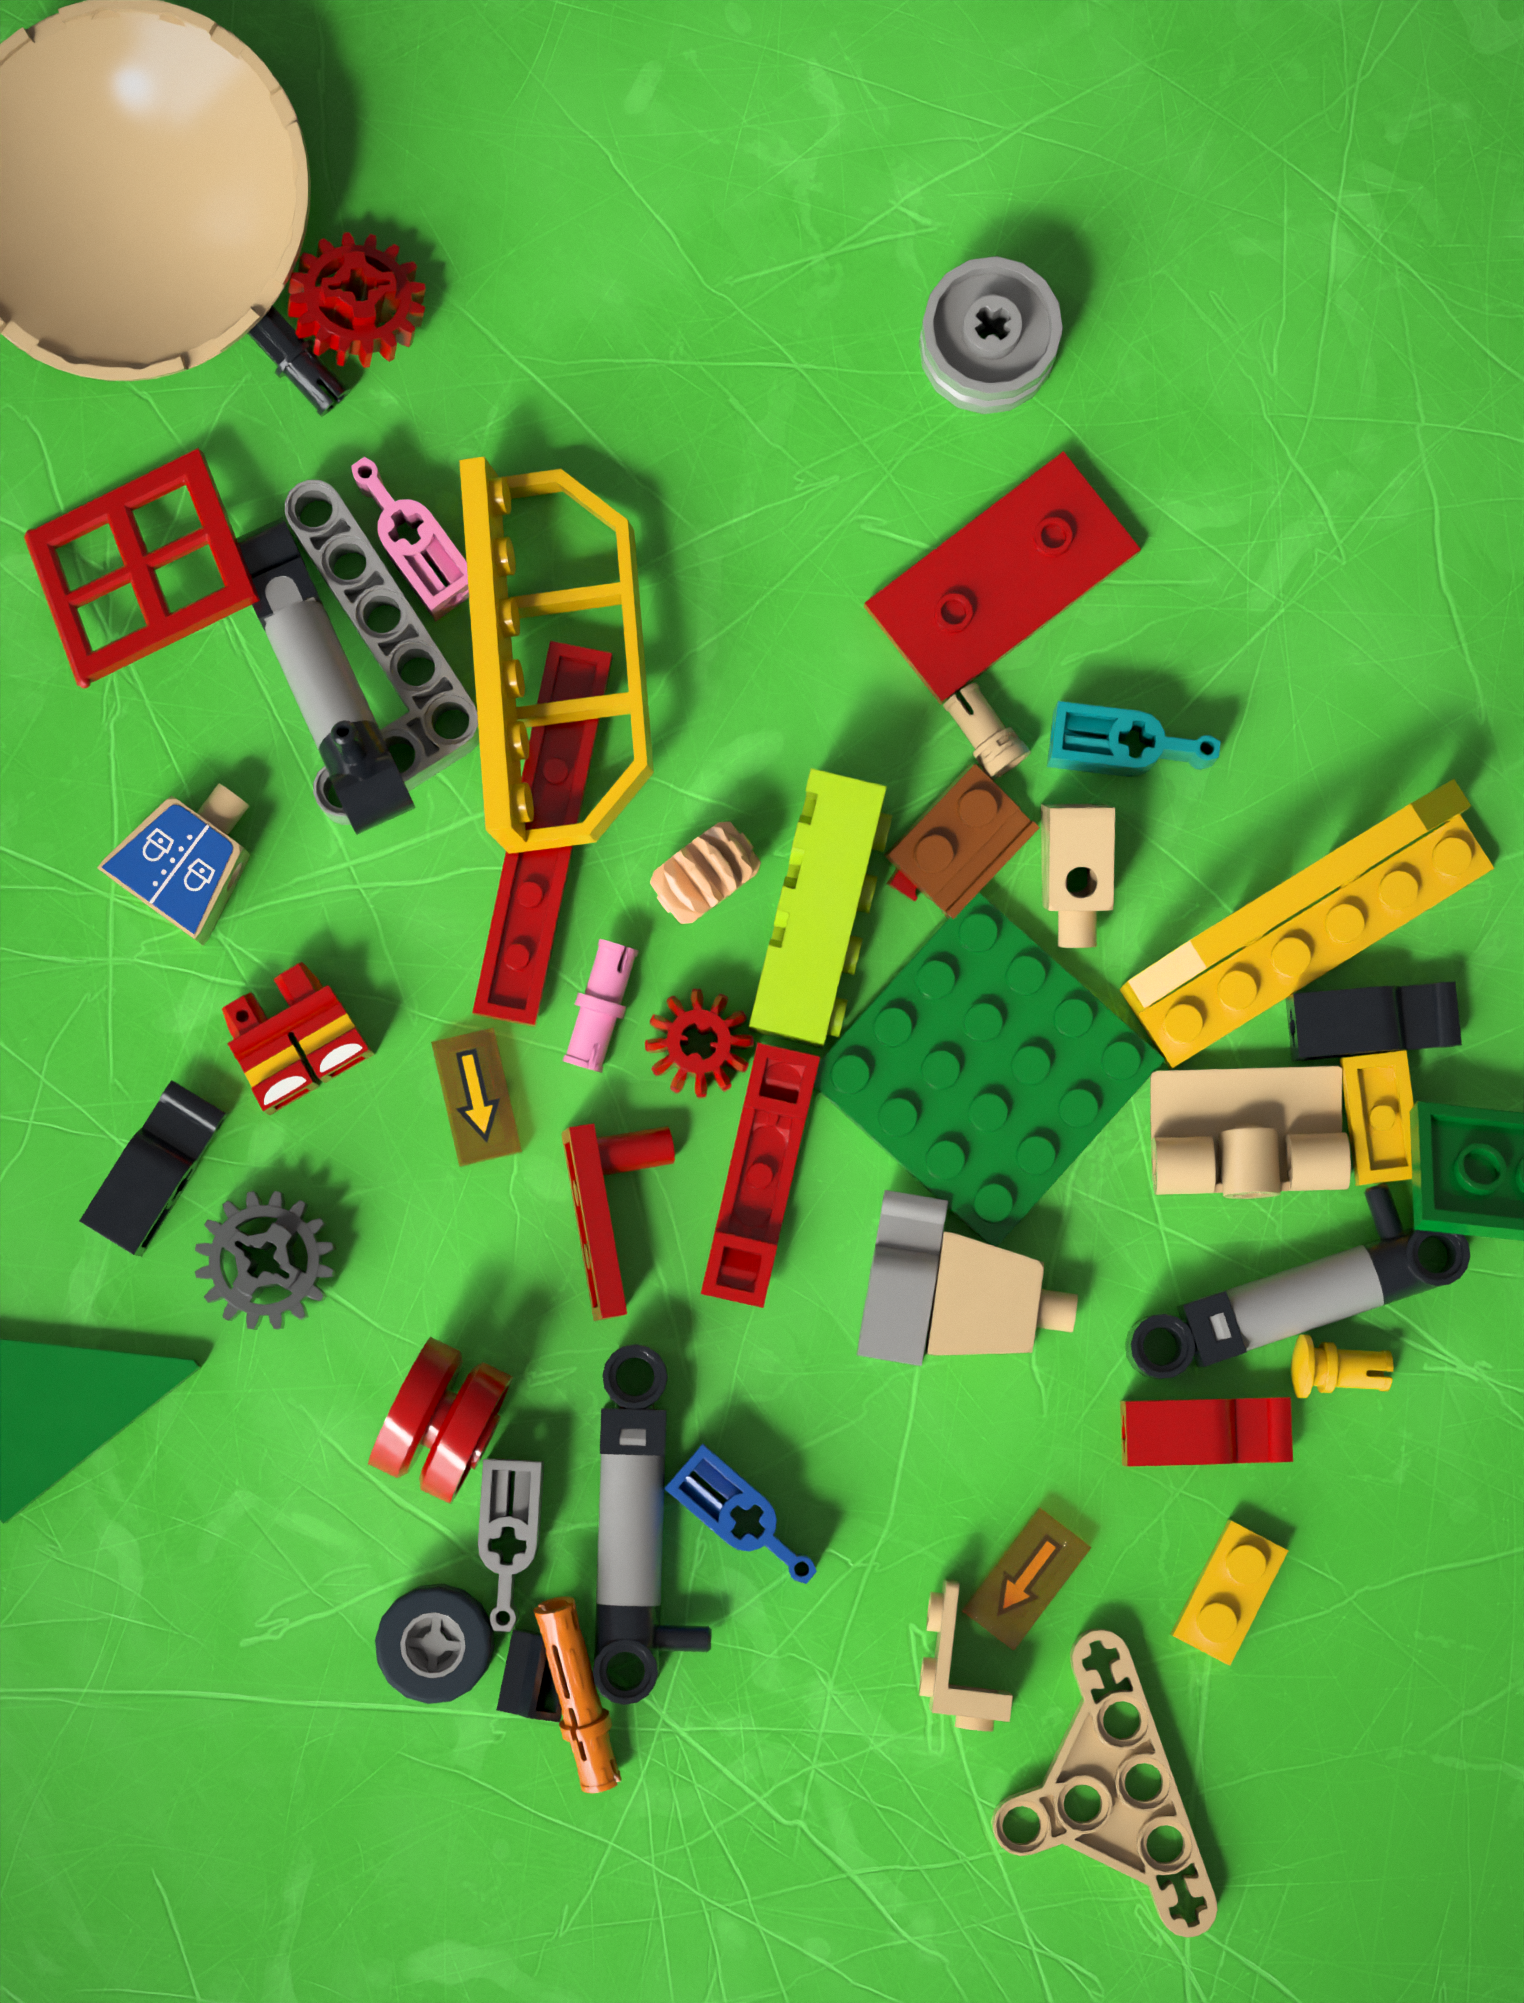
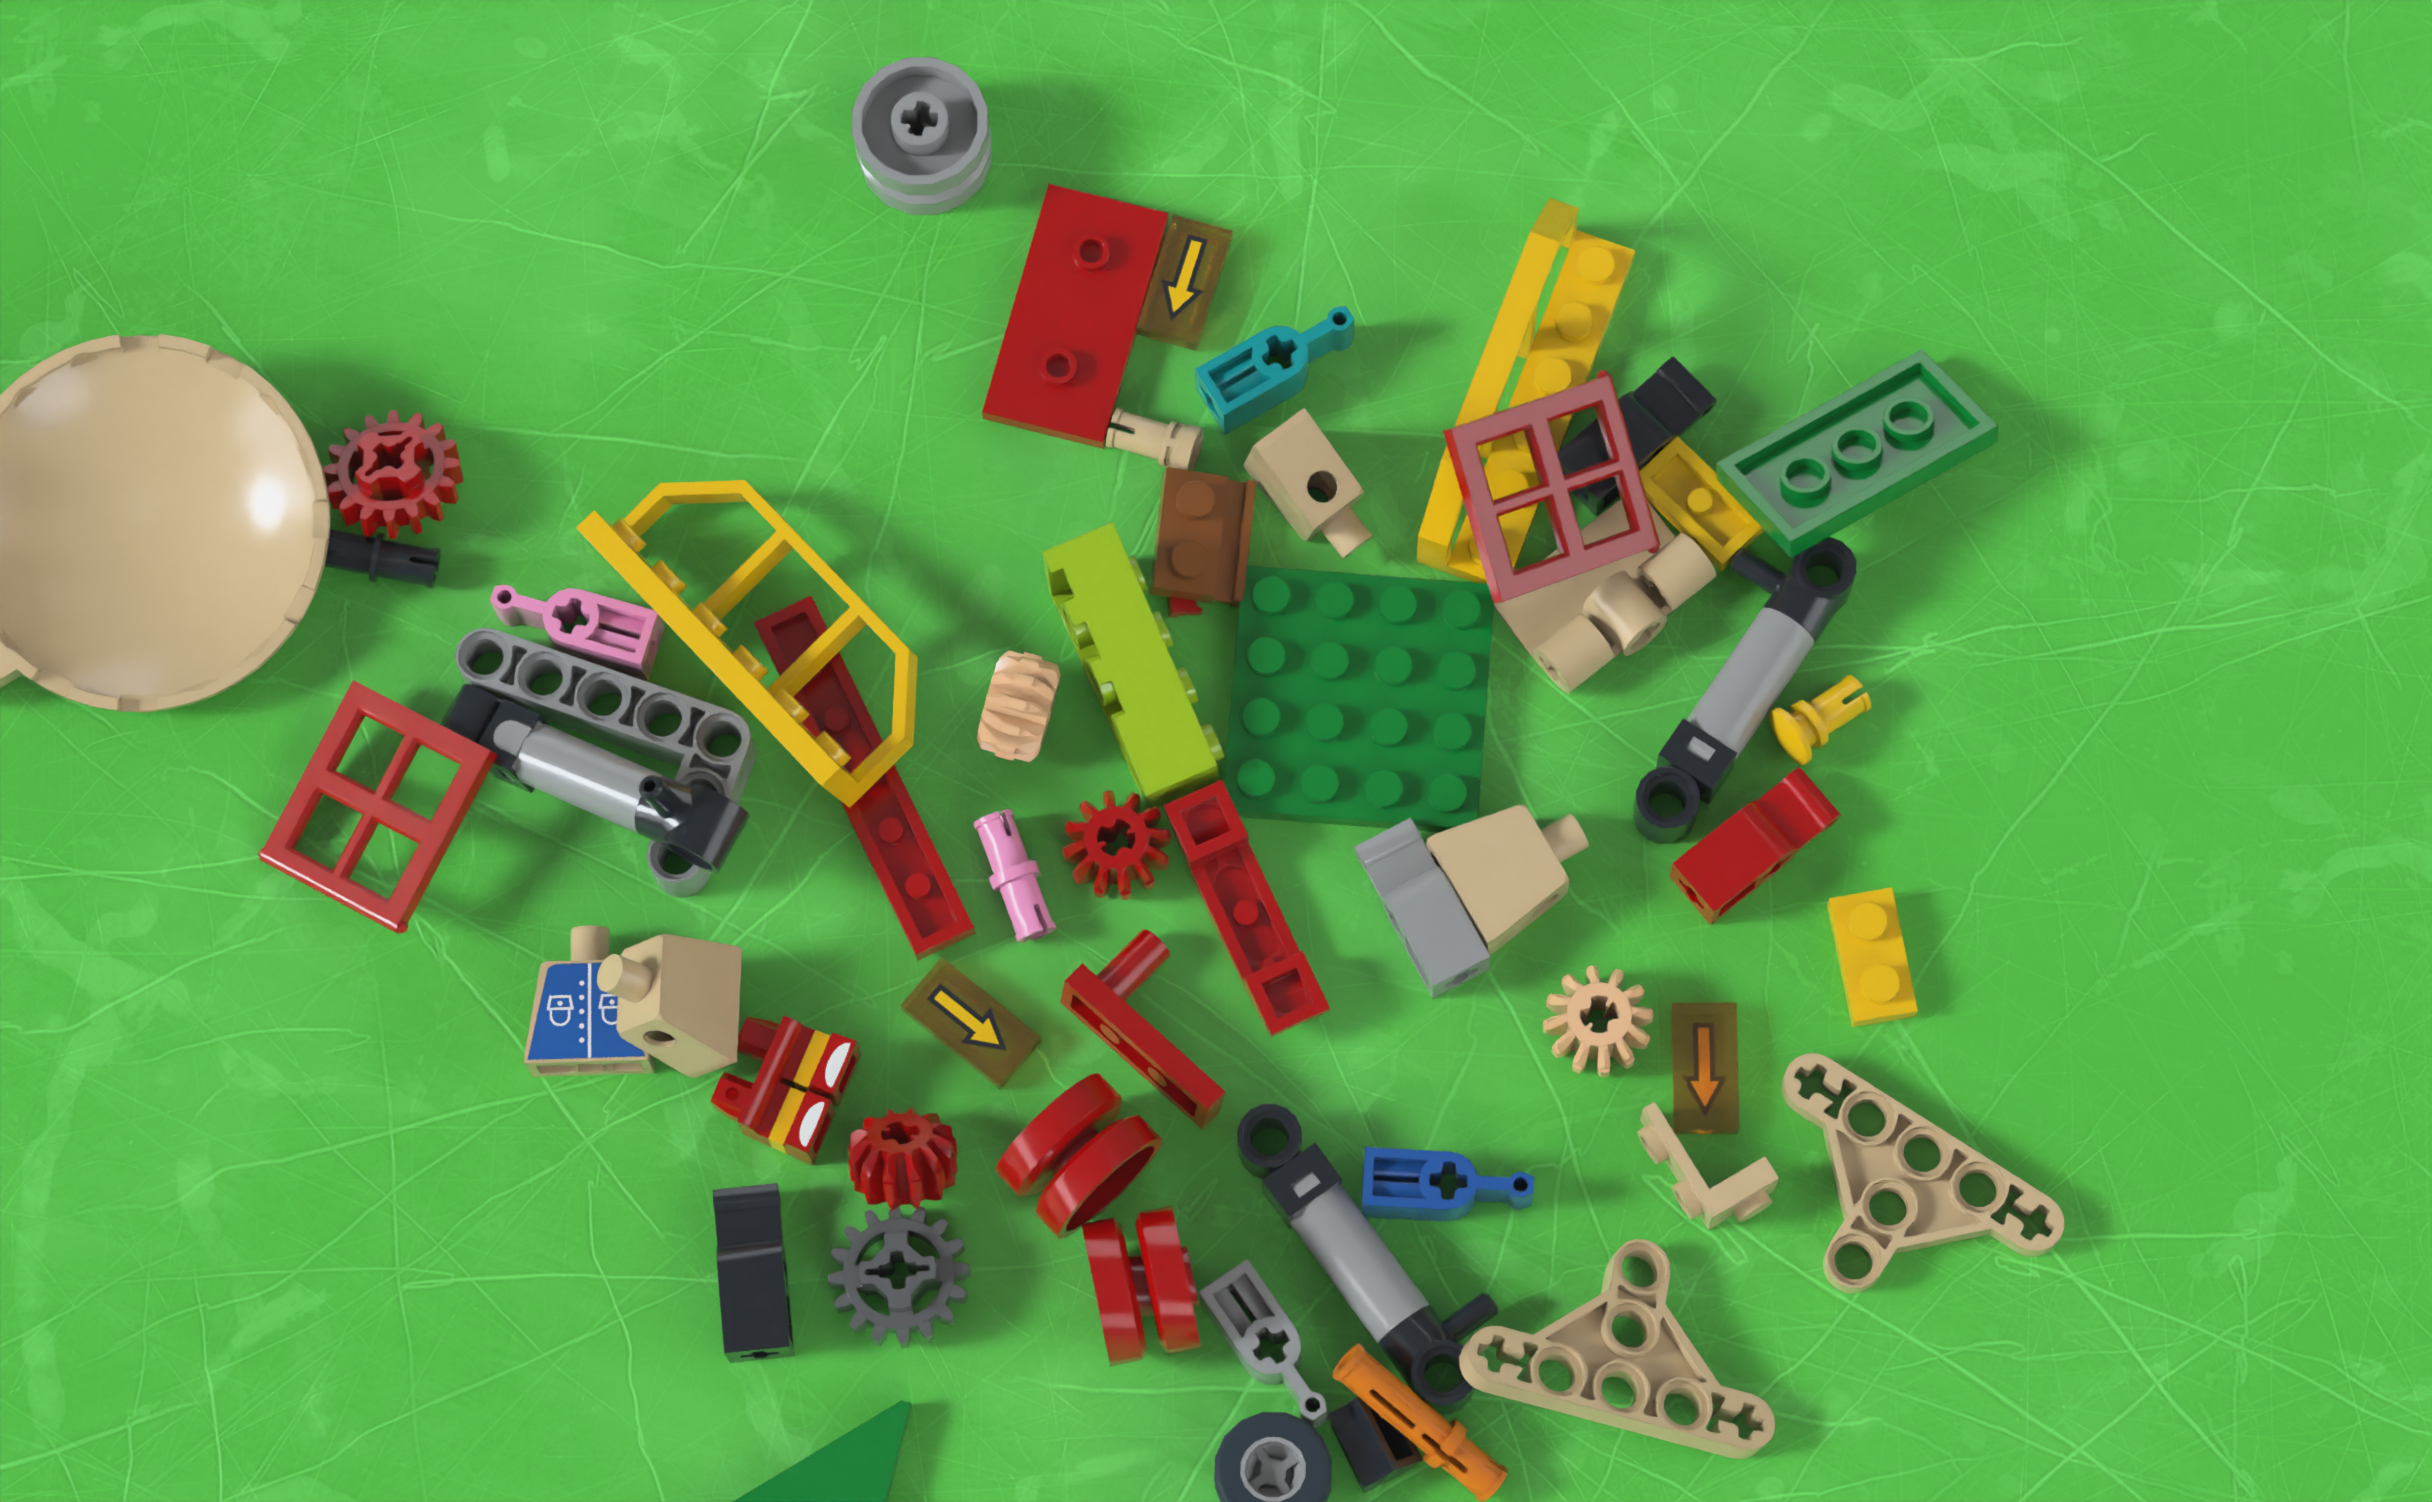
camera: 30 degrees left, 10 degrees down
(253, 909) = (678, 1000): none -> tan torso
(335, 1171) = (903, 1158): none -> red gear
(471, 1276) = (1078, 1155): none -> red wheel
(793, 1792) = (1657, 1368): none -> tan beam
(972, 1500) = (1621, 1030): none -> light nougat gear
(1110, 616) = (1184, 282): none -> clear orange tile
(1264, 1029) = (1552, 488): none -> window

